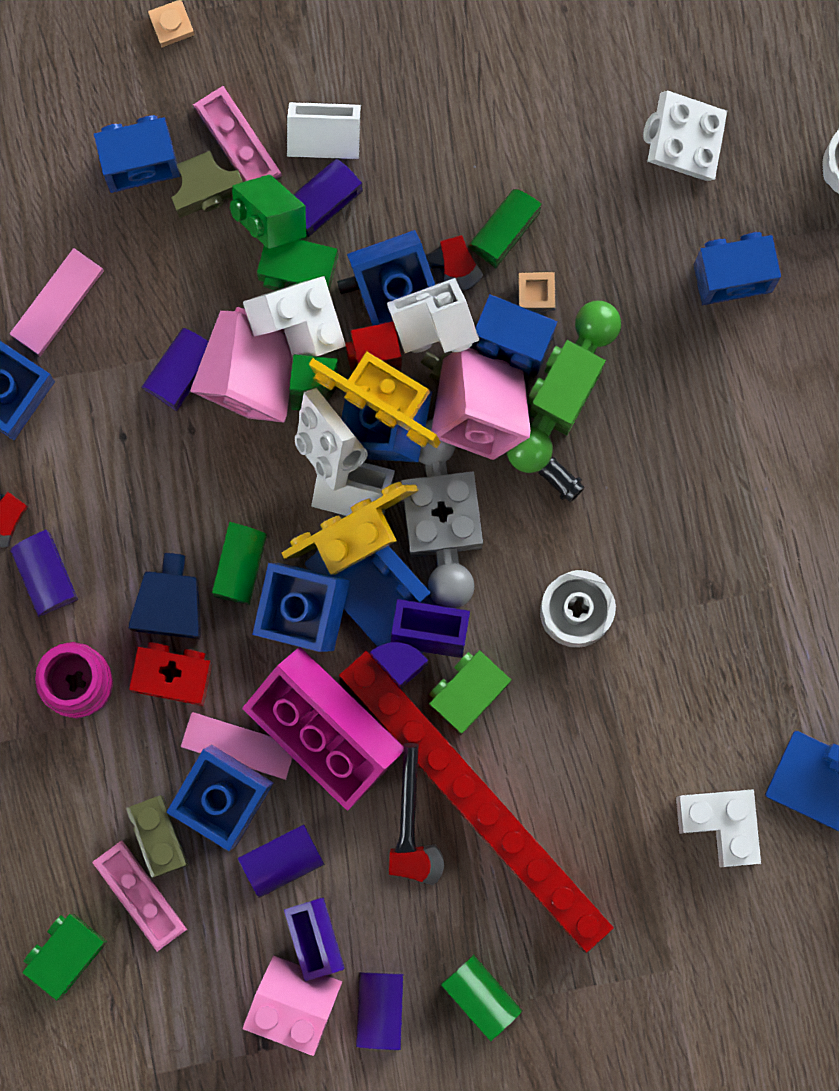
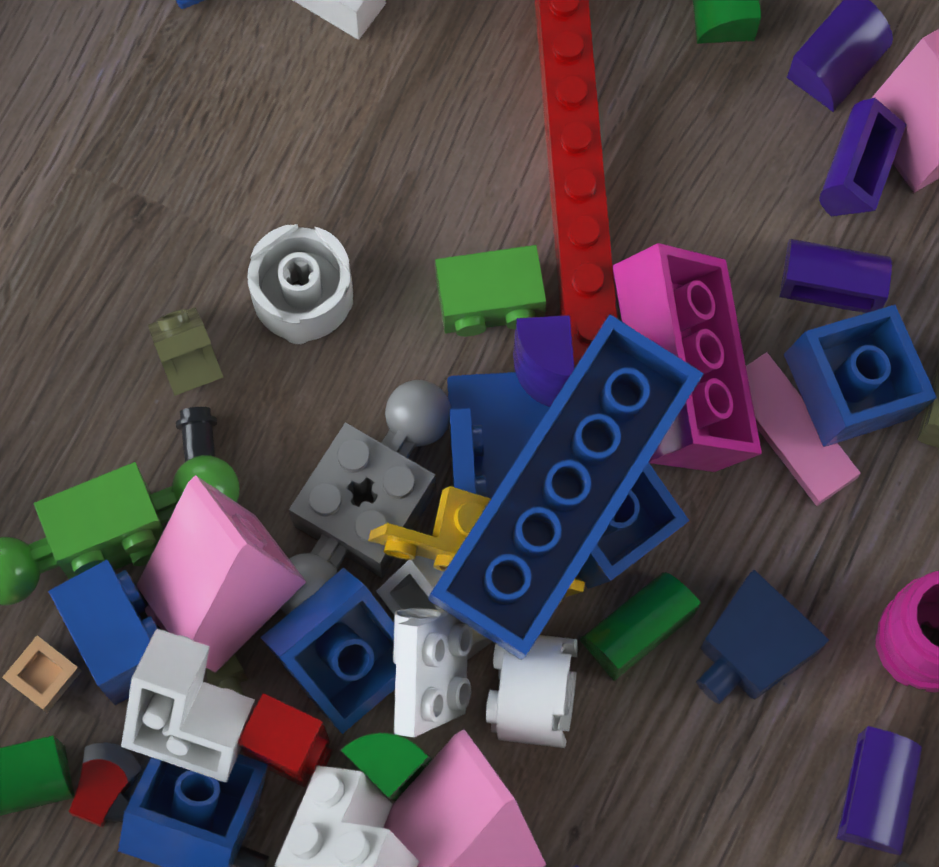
camera: 140 degrees left, 10 degrees down
(150, 681) = (807, 530): red brick -> none
(267, 479) = (534, 693): none -> white brick
(324, 579) = (565, 487): none -> blue brick
(383, 390) = (318, 656): yellow bracket -> none
(407, 860) = (695, 177): piece -> none
(430, 628) = (480, 379): dark purple brick -> none
(611, 521) = (185, 350): none -> olive brick

